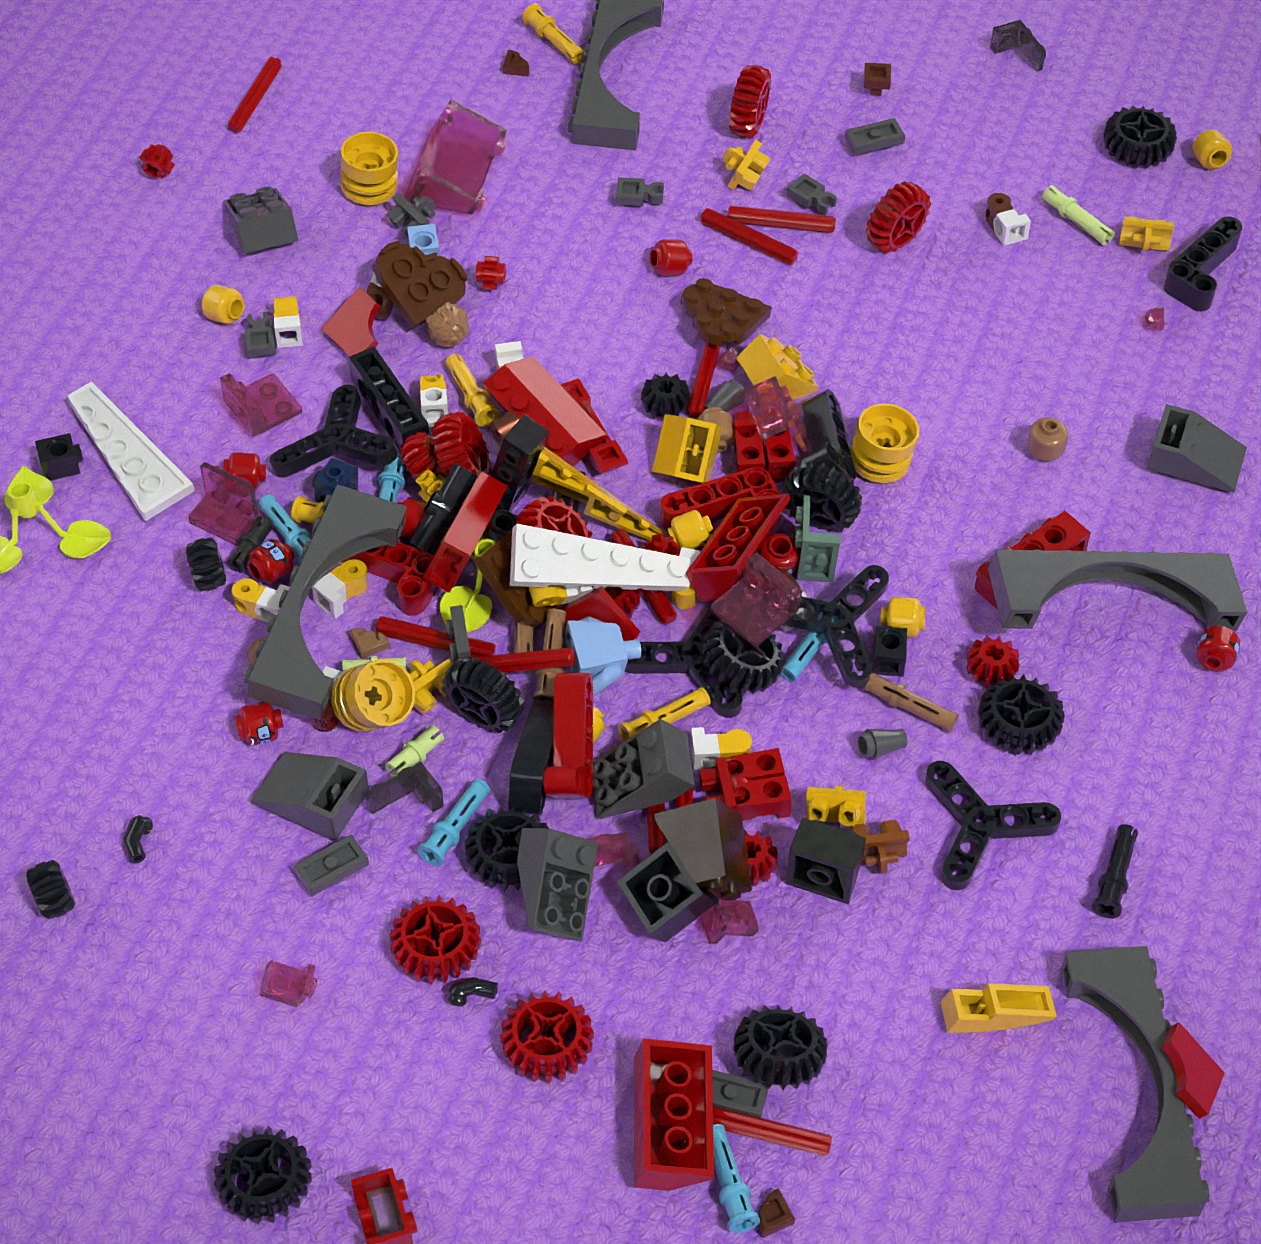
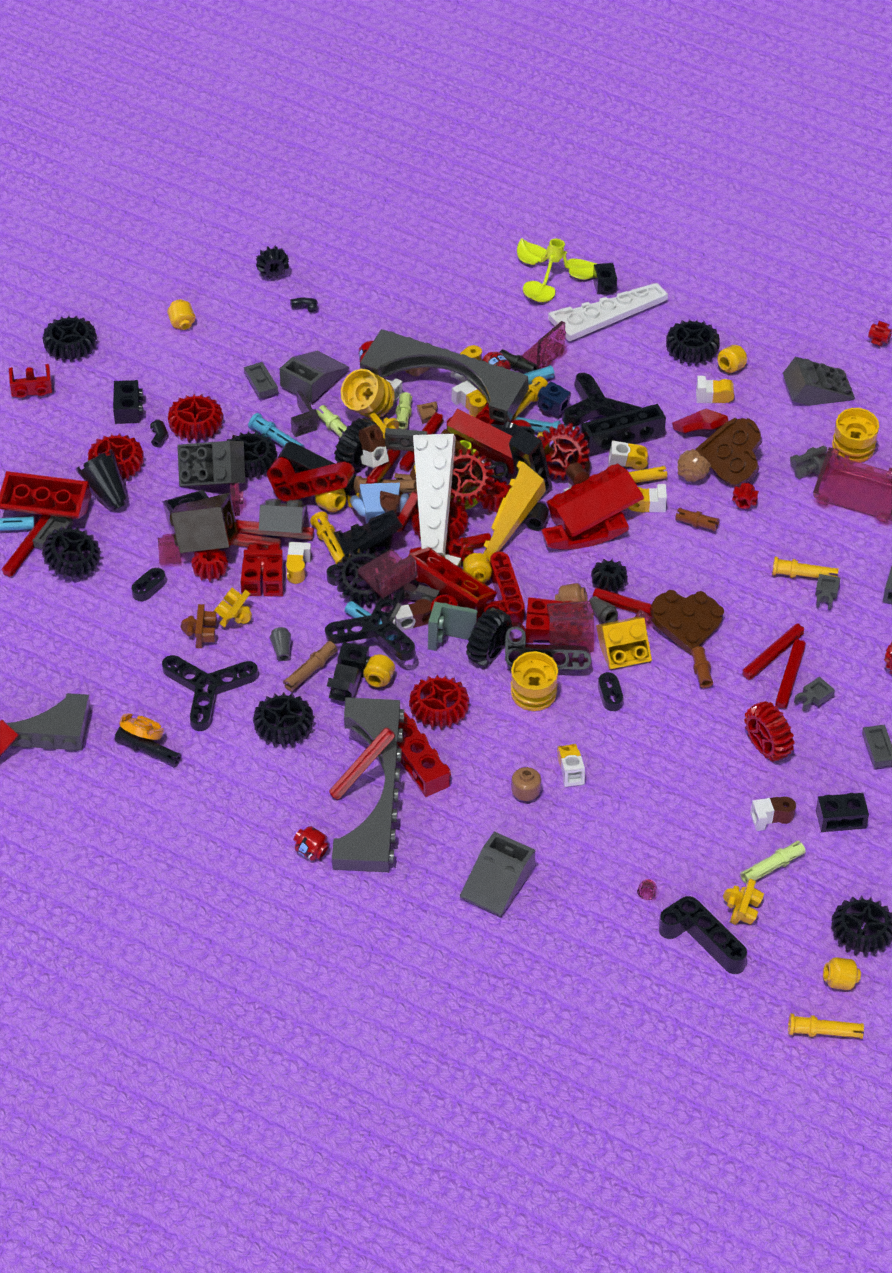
camera: 100 degrees right, 5 degrees down
(186, 1008) = (181, 314): none -> yellow head
(190, 342) = (692, 342): none -> black gear
(205, 564) = (497, 334): black gear -> none
(246, 466) = (575, 358): red head -> none
(259, 337) = (693, 372): dark grey plate -> none
(259, 403) = (636, 370): clear pink bracket -> none
(288, 983) = (185, 355): clear pink bracket -> none
(414, 1056) = (127, 401): none -> black brick
(424, 238) = (777, 464): light blue brick -> none
(508, 657) = (373, 446): none -> leg
(538, 320) = (697, 519): none -> dark orange pin
(607, 221) = (794, 568): none -> yellow pin
(611, 627) = (389, 501): none -> copper tile
(614, 1026) = (105, 479): none -> black cone
(663, 658) = (369, 534): none -> black wing
(670, 257) = (750, 597): red head -> none
(687, 448) = (546, 573): yellow slope -> none
(735, 159) = (850, 653): yellow hips -> none
(797, 296) = (702, 667): none -> dark orange pin
(804, 937) = (146, 583): none -> black beam
(825, 860) = (190, 587): pearl dark grey slope -> none
(859, 381) = (614, 690): none -> black beam
(934, 556) = (439, 701): none -> red gear
(940, 654) = (344, 682): none -> black brick
(986, 160) = (842, 812): none -> black brick
(992, 660) = (329, 713): red gear -> none
(995, 403) = (571, 765): none -> white leg
(997, 1008) = (67, 663): yellow slope -> none
(1094, 592) = (362, 763): none -> red axle
(1097, 876) = (141, 726): none -> light orange tile

